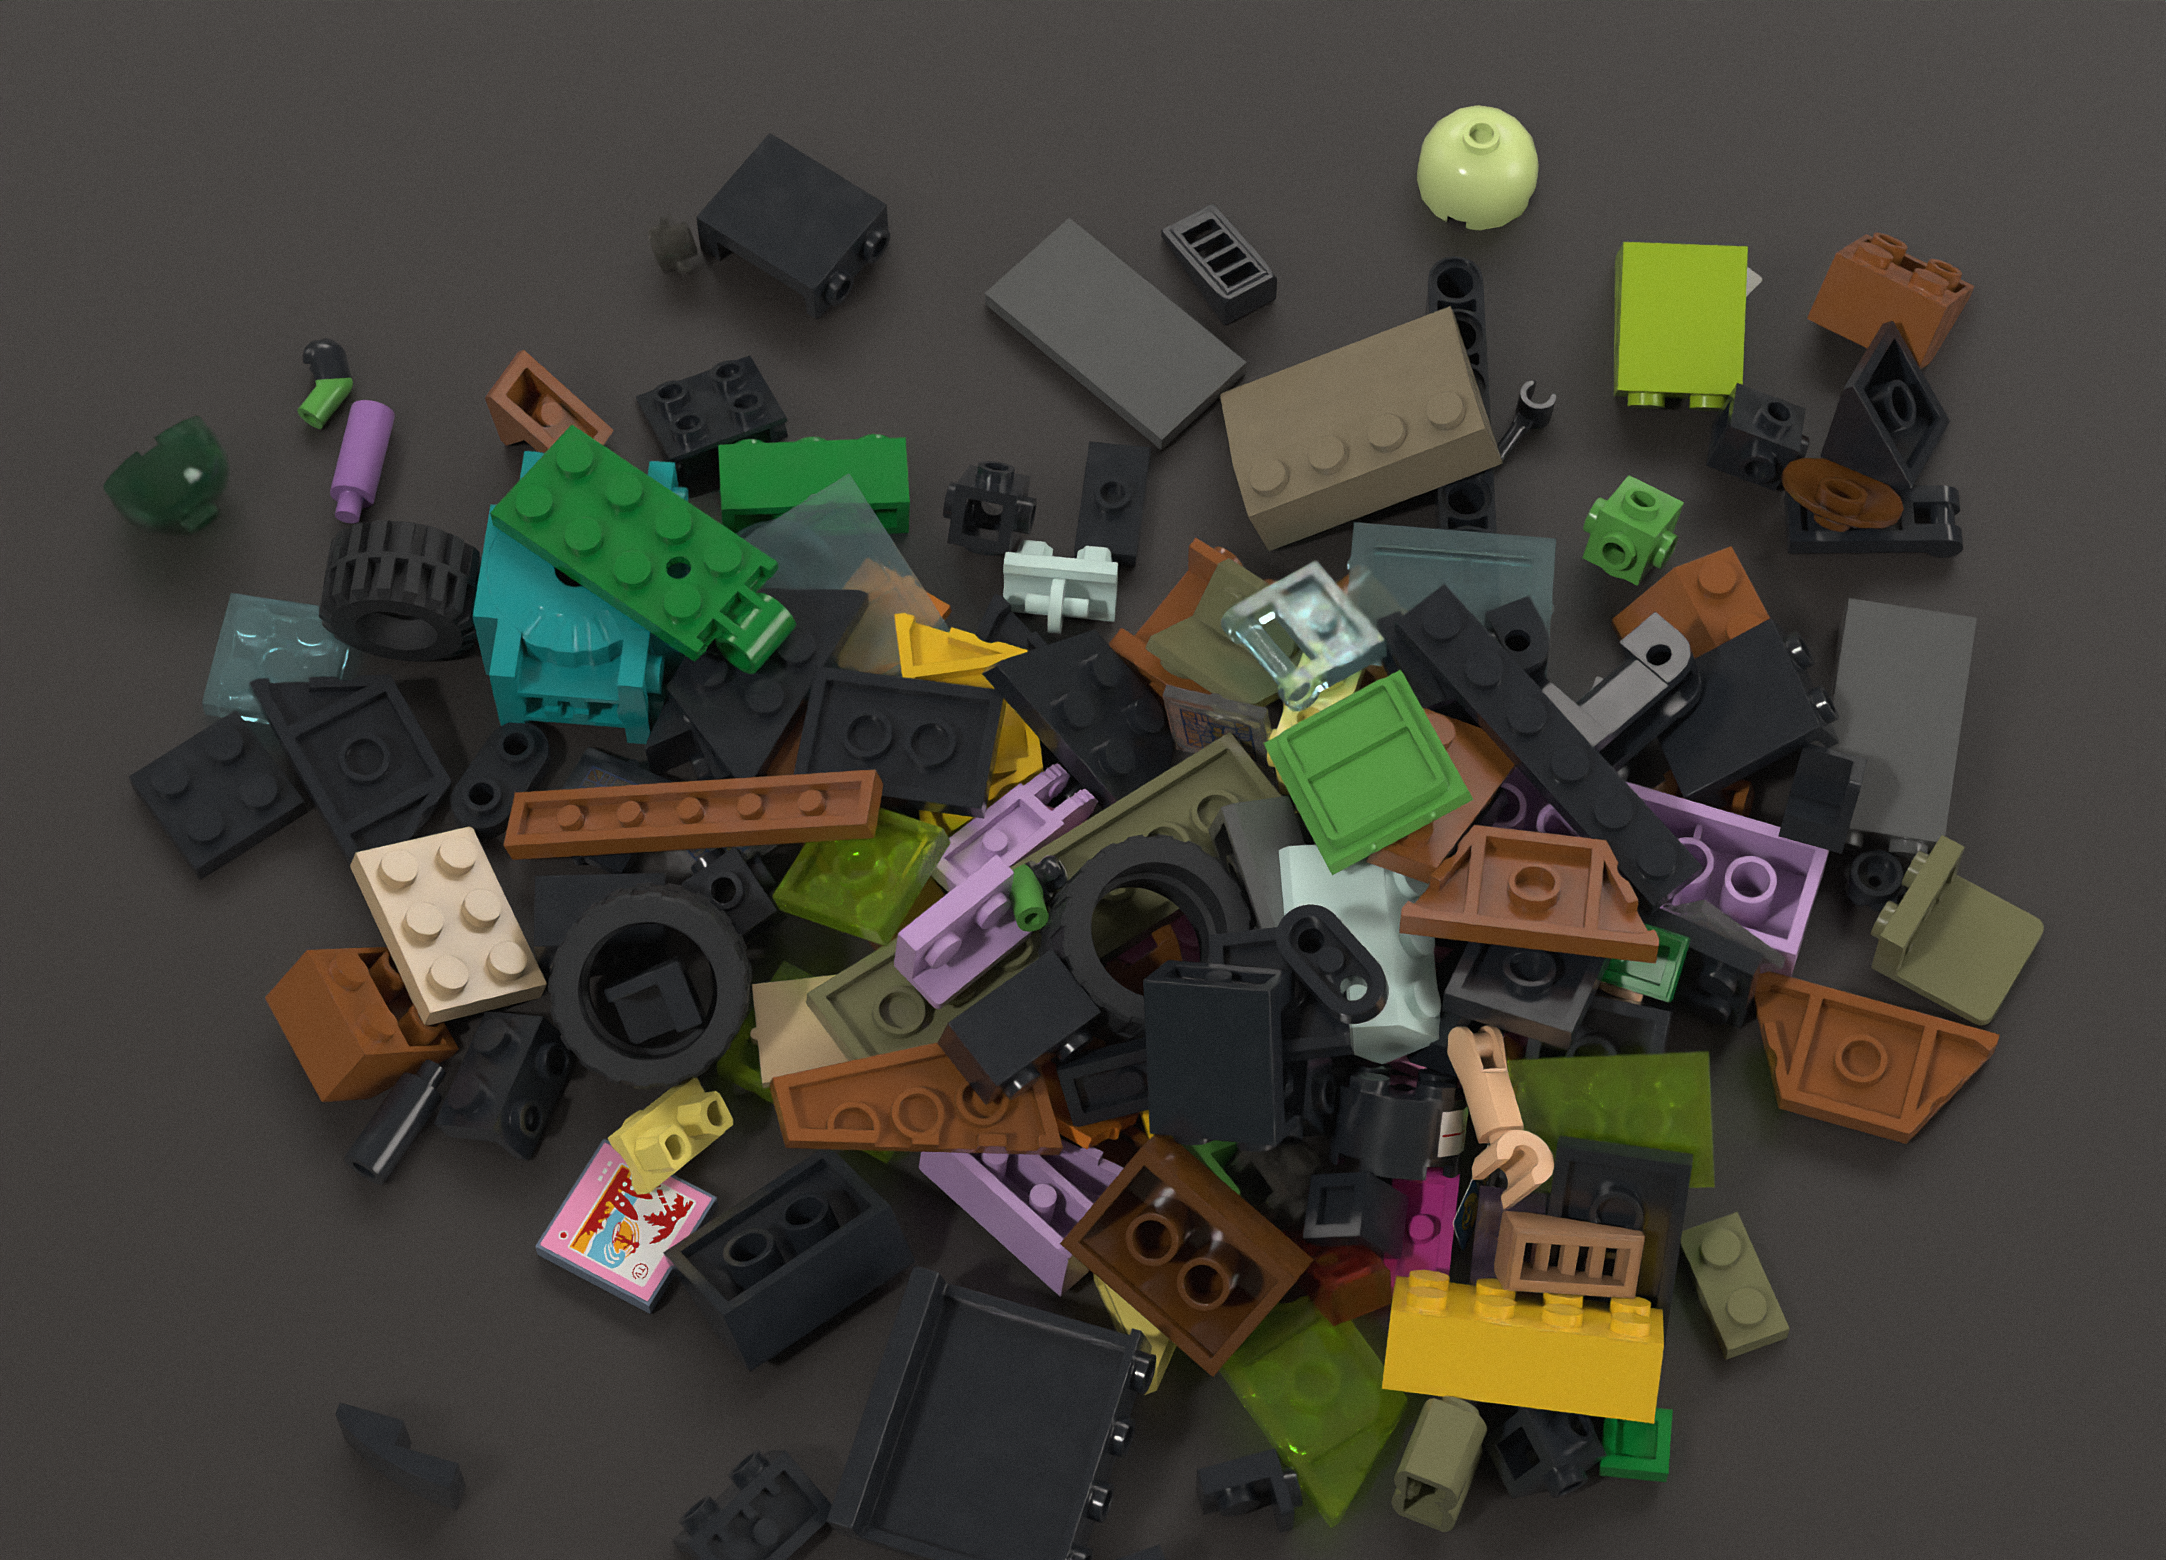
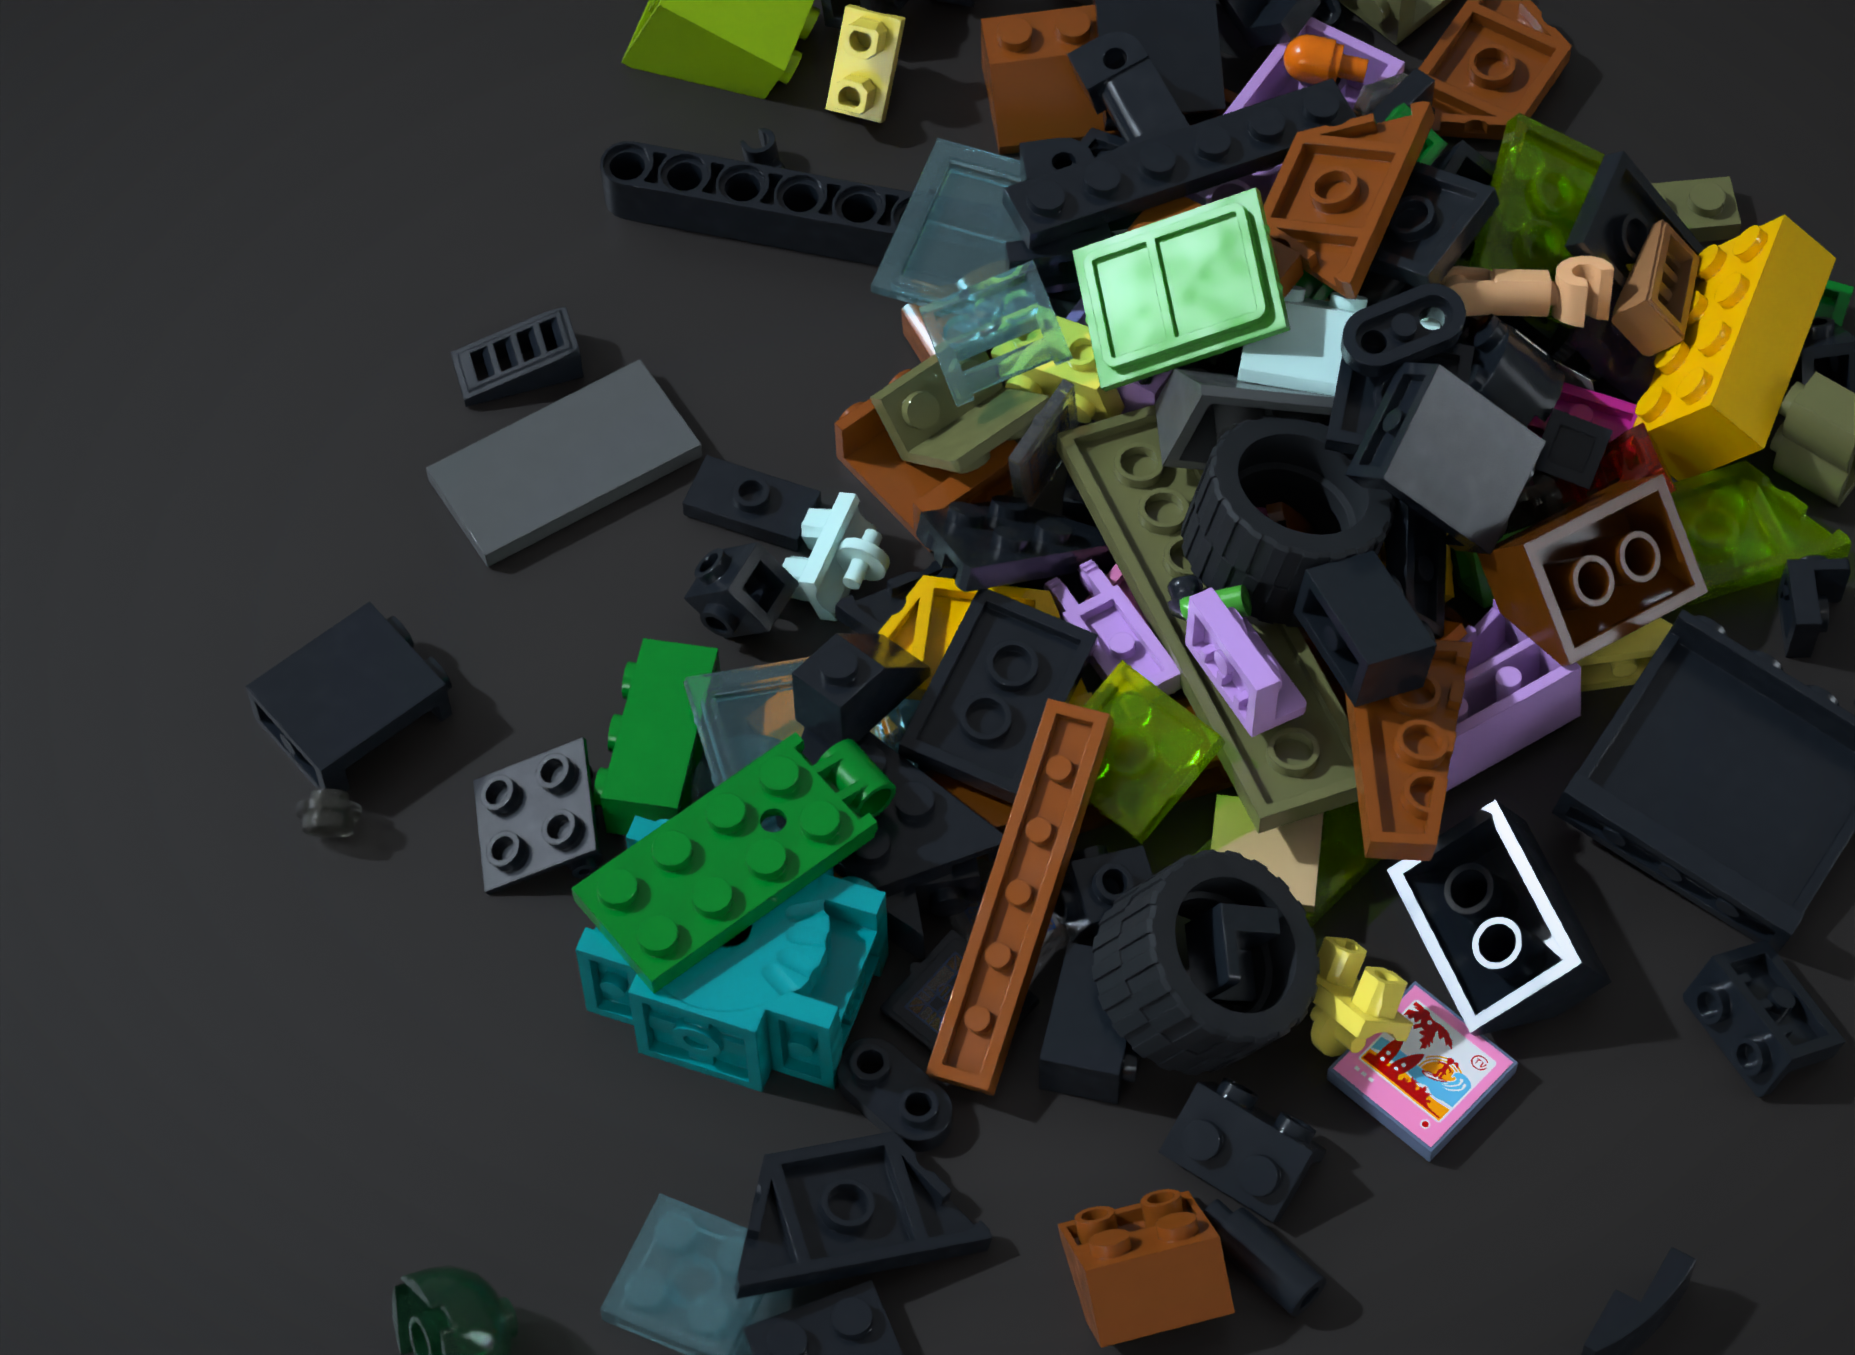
camera: 75 degrees left, 5 degrees down
(332, 381) = (370, 1167): arm -> none
(361, 458) = (478, 1154): medium lavender cylinder -> none
(401, 590) = (679, 1115): black tyre -> none
(448, 925) = (1058, 1163): tan plate -> none
(537, 407) = (498, 959): dark orange slope -> none
(869, 612) = (853, 685): none -> black slope
(1358, 429) = (754, 269): dark tan slope -> none
(1478, 167) = (493, 135): yellowish green cylinder -> none
(1632, 530) = (928, 97): bright green brick -> none
(1660, 456) = (865, 63): none -> light yellow hips
(1753, 867) = (1318, 59): none -> orange cylinder

